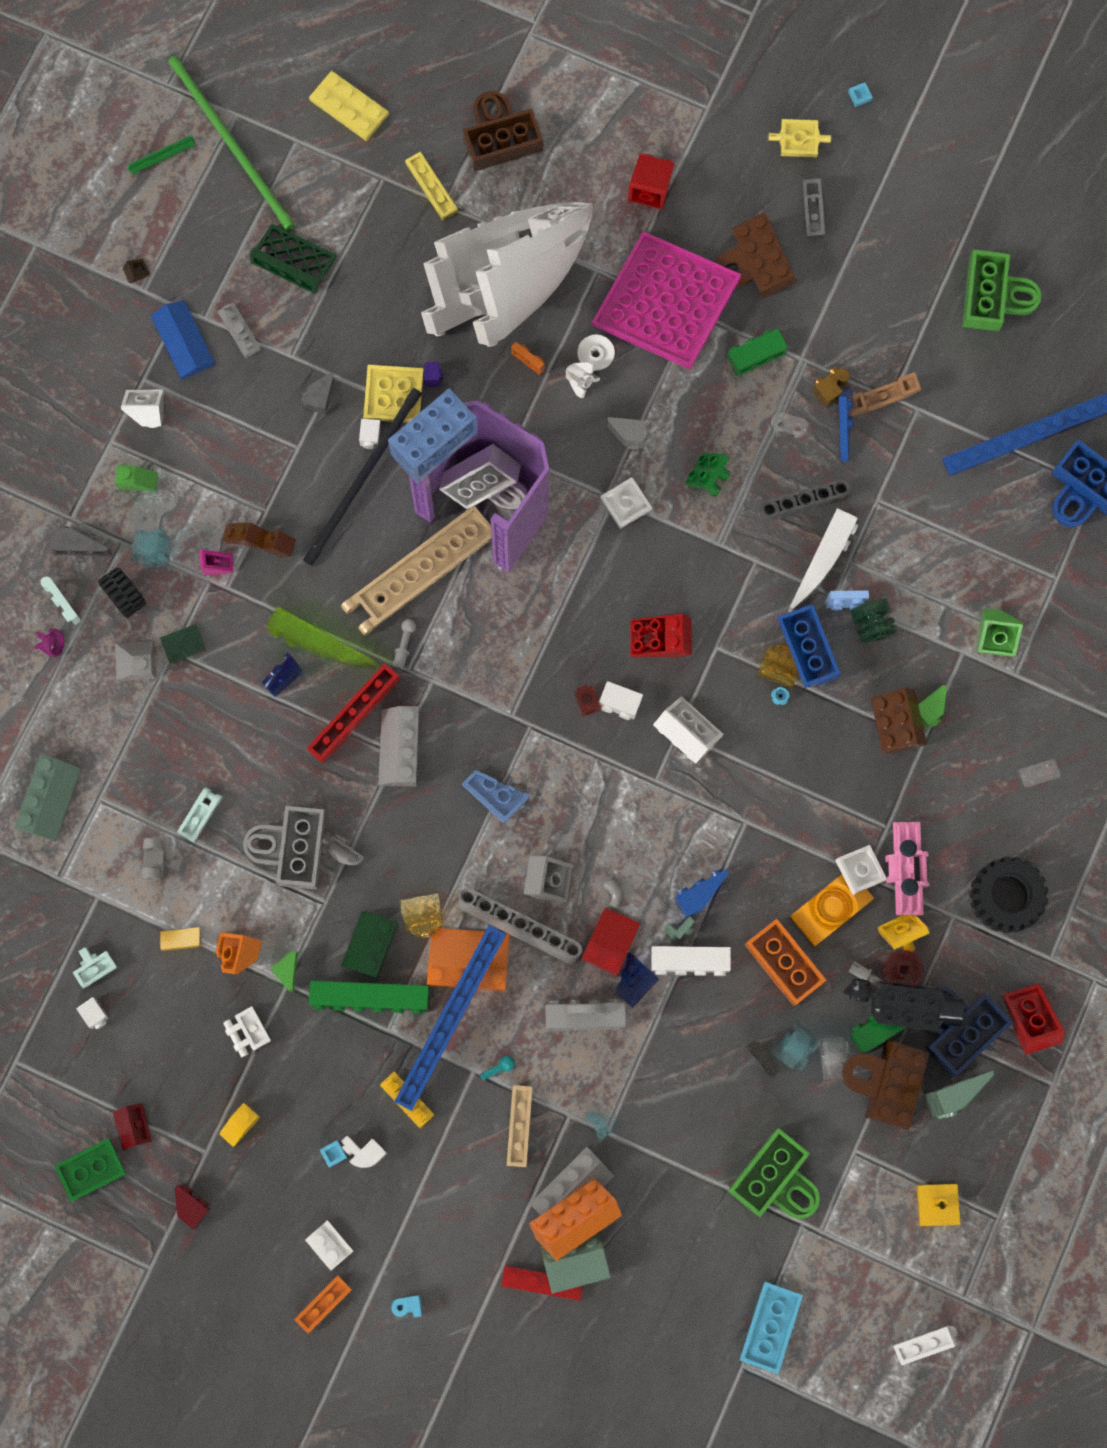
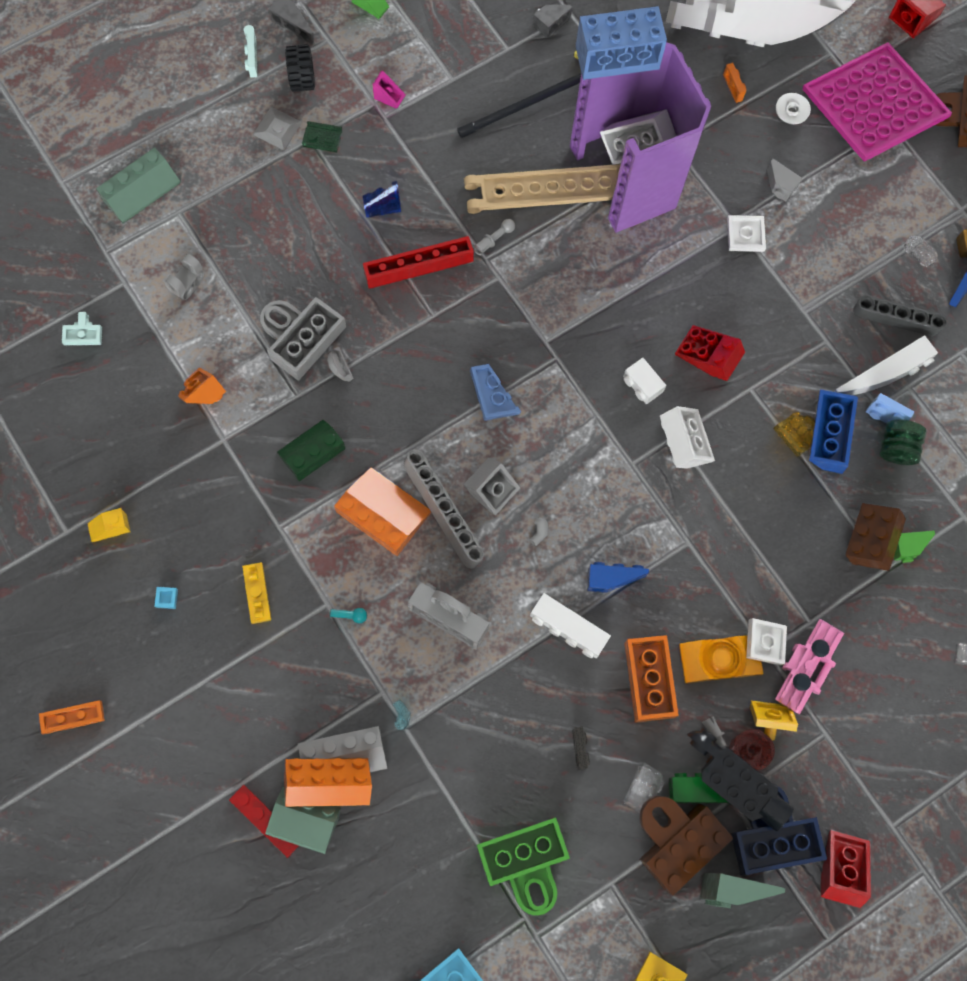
camera: 30 degrees right, 5 degrees down
(52, 642) = (222, 78): magenta piece -> none
(93, 1013) = (56, 366): white brick -> none
(132, 1126) = (24, 473): dark red panel -> none
(151, 548) = (345, 51): clear light blue brick -> none
(180, 939) = (164, 353): yellow slope -> none
(190, 1208) = (21, 567): dark red slope -> none
(199, 815) = (245, 268): light aqua plate -> none
(252, 1028) = (171, 459): white plate -> none
(257, 537) = (430, 87): reddish brown arch -> none
(286, 970) = (230, 427): bright green slope -> none
(309, 638) = (425, 191): clear neon green slope -> none
(329, 1245) = (111, 671): white plate -> none
(364, 1157) = (191, 617): white brick -> none
(368, 995) = (282, 488): green brick -> none
(370, 433) = (570, 66): white brick -> none
(399, 746) = (440, 310): light grey slope -> none
(408, 1304) = (141, 764): medium azure leg -> none
(422, 915) = (369, 451): clear yellow slope -> none
(450, 1018) = (334, 544): blue plate -> none
(519, 1126) = (334, 673): tan plate -> none
(581, 377) = (769, 118): white brick -> none
(587, 709) = (616, 372): clear red brick -> none
(610, 942) = (510, 569): red slope -> none
(635, 981) = (511, 615): clear blue slope -> none
(686, 928) = (582, 597): sand green bracket -> none
(706, 471) = (831, 243): green plate -> none
(756, 352) = (928, 181): green brick -> none
(780, 691) = (783, 453): medium azure plate -> none
(796, 1048) = (615, 758): clear light blue brick -> none
(1031, 883) = (913, 740): black tyre -> none

